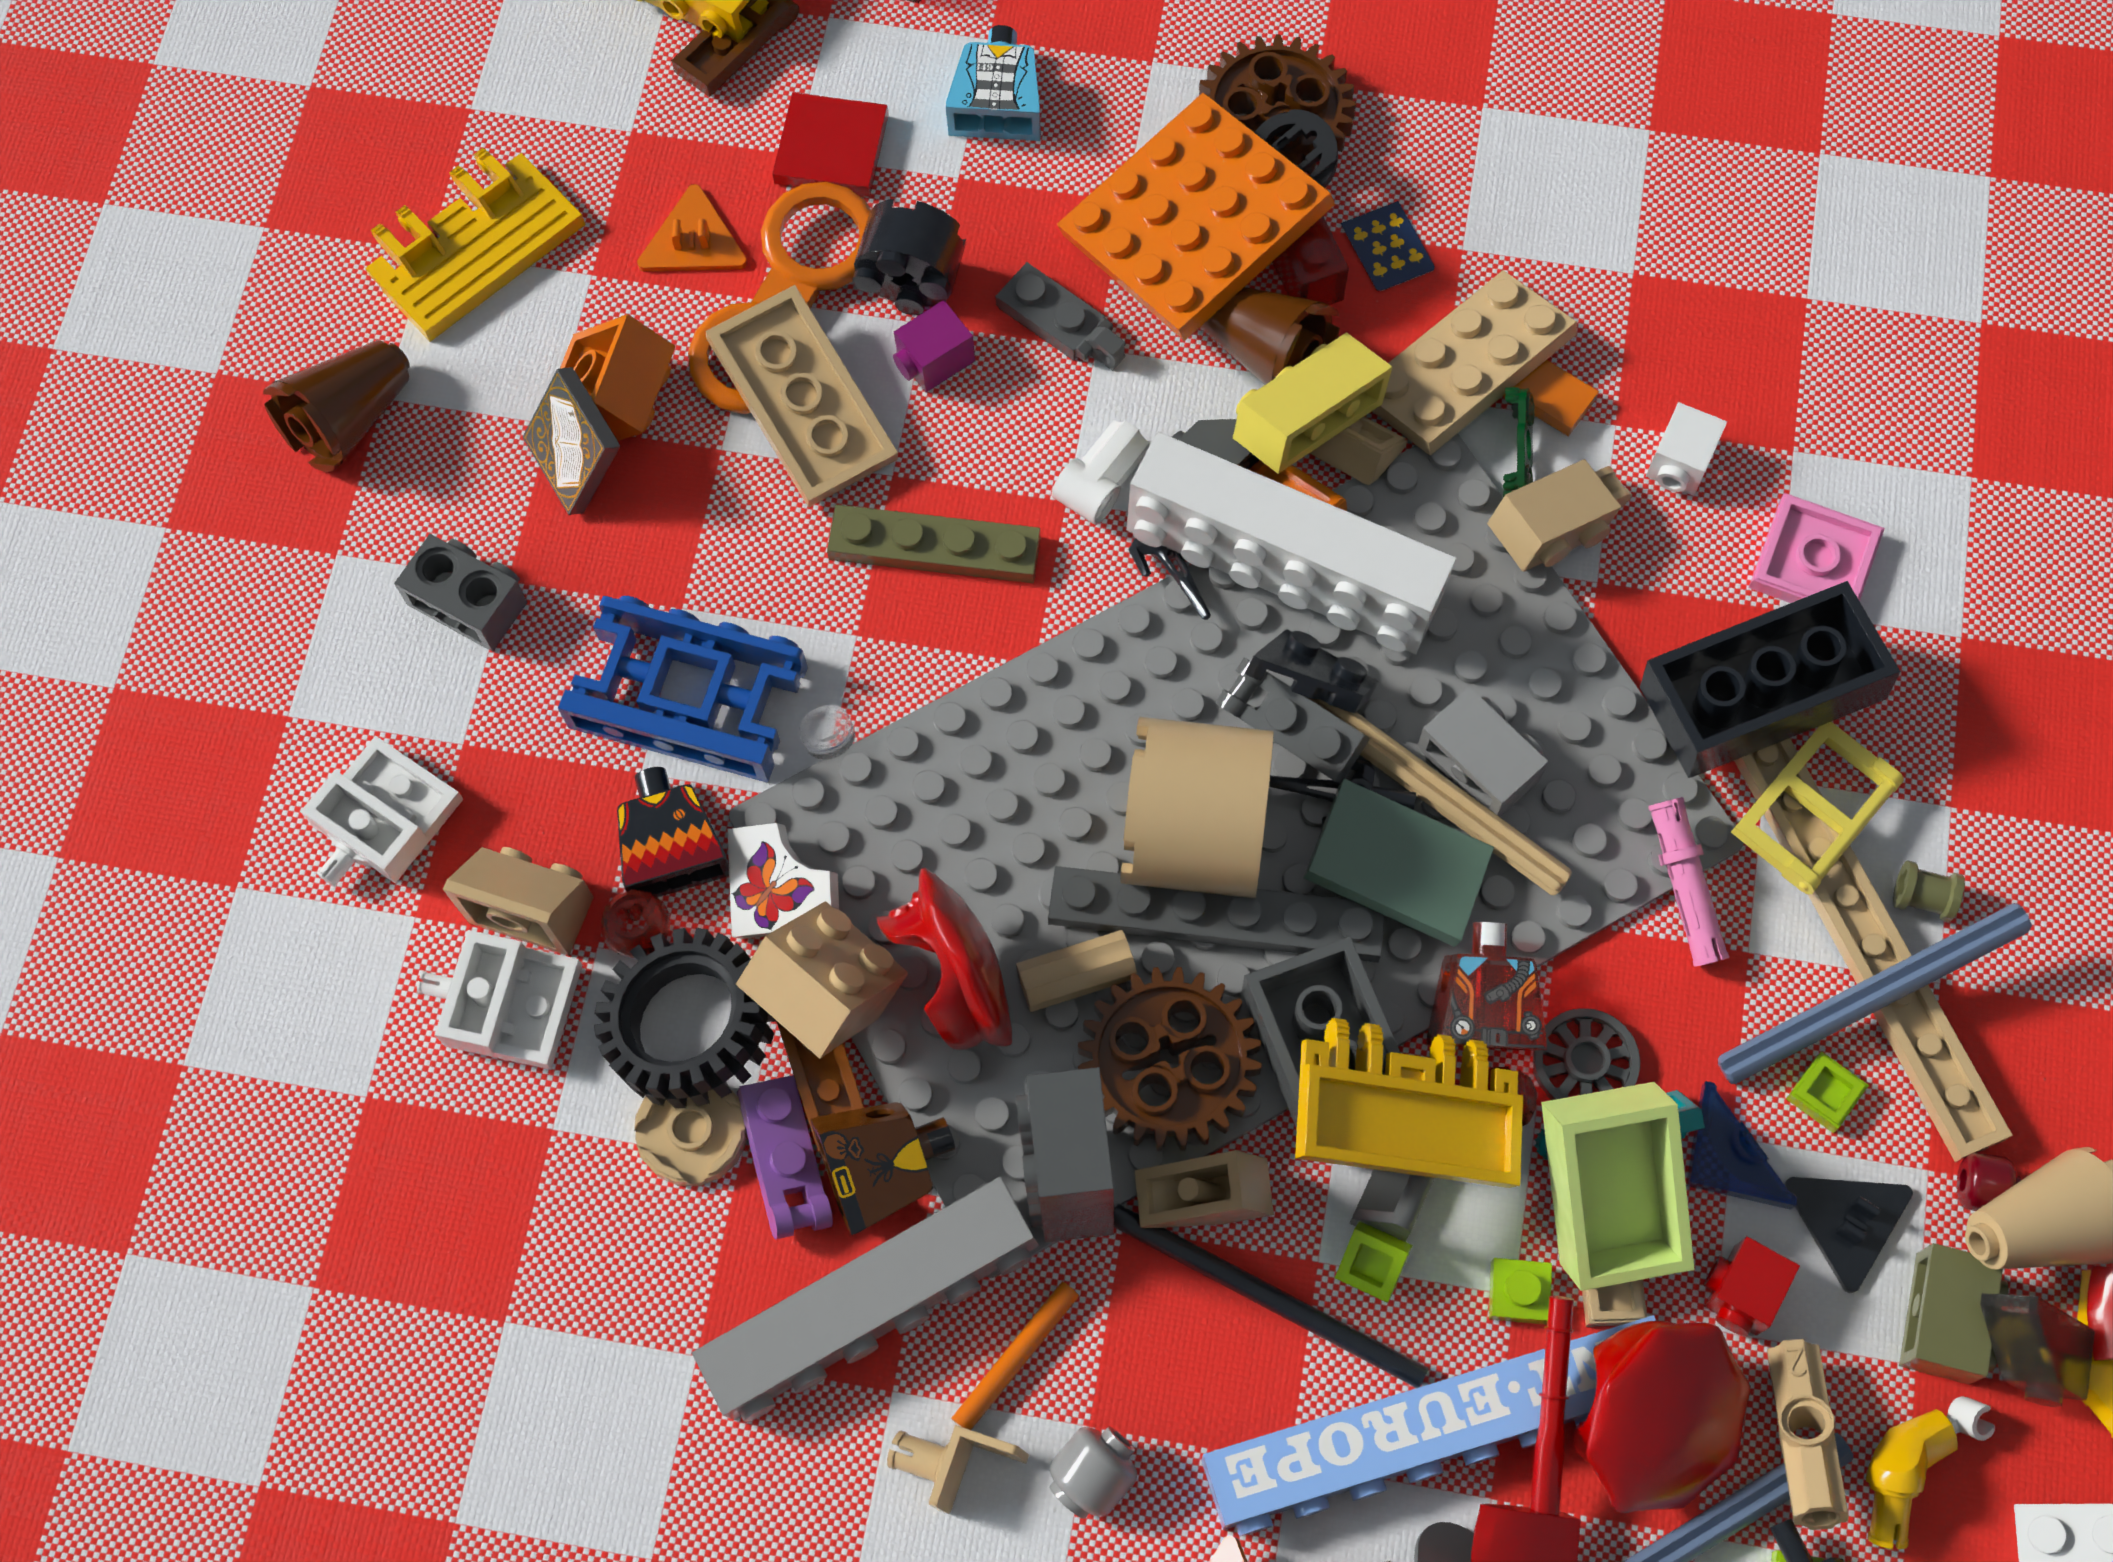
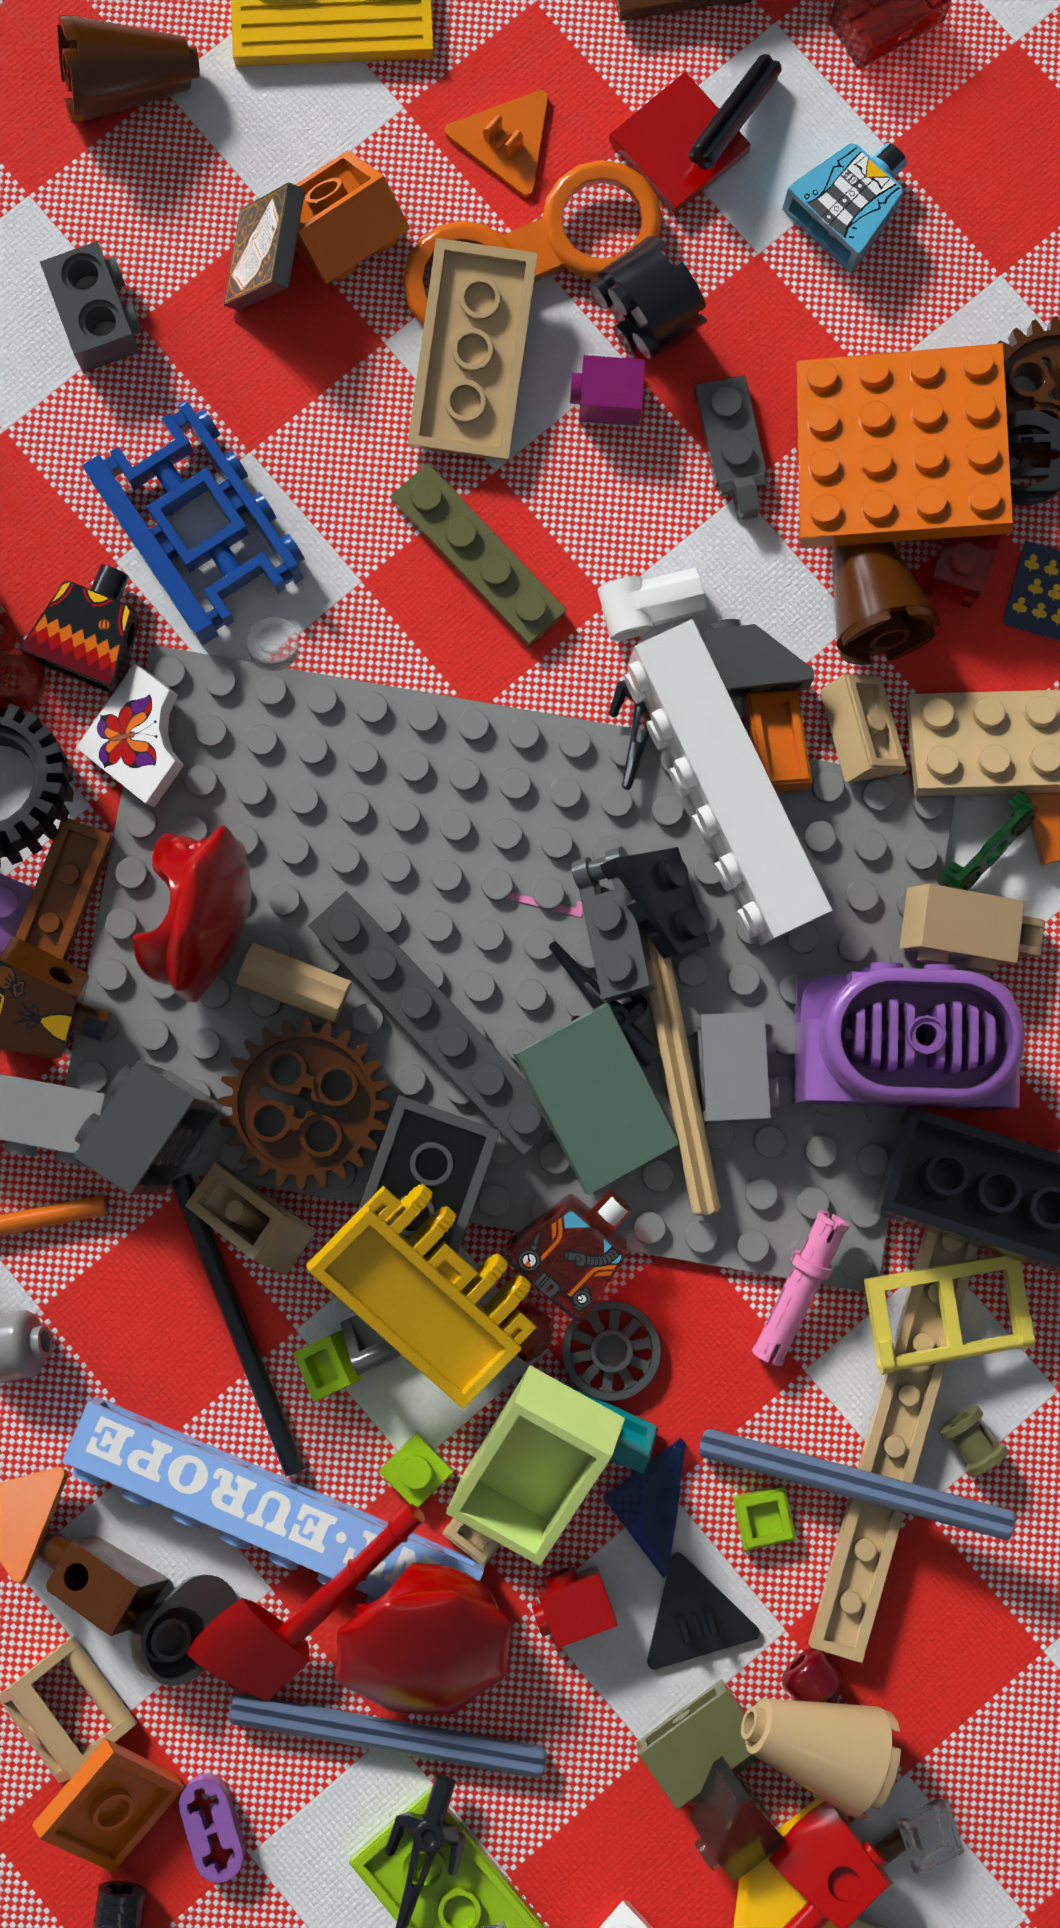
camera: 30 degrees right, 15 degrees up
(821, 978) = (95, 841): tan brick -> none
(856, 89) = (735, 112): none -> black axle
(1197, 807) = (471, 939): tan brick -> none
(1311, 402) = (849, 683): light yellow brick -> none
(1595, 613) = (863, 1049): none -> medium lavender brick
(1813, 1463) = (496, 1767): tan piece -> none
(1903, 1458) = (579, 1806): yellow arm -> none

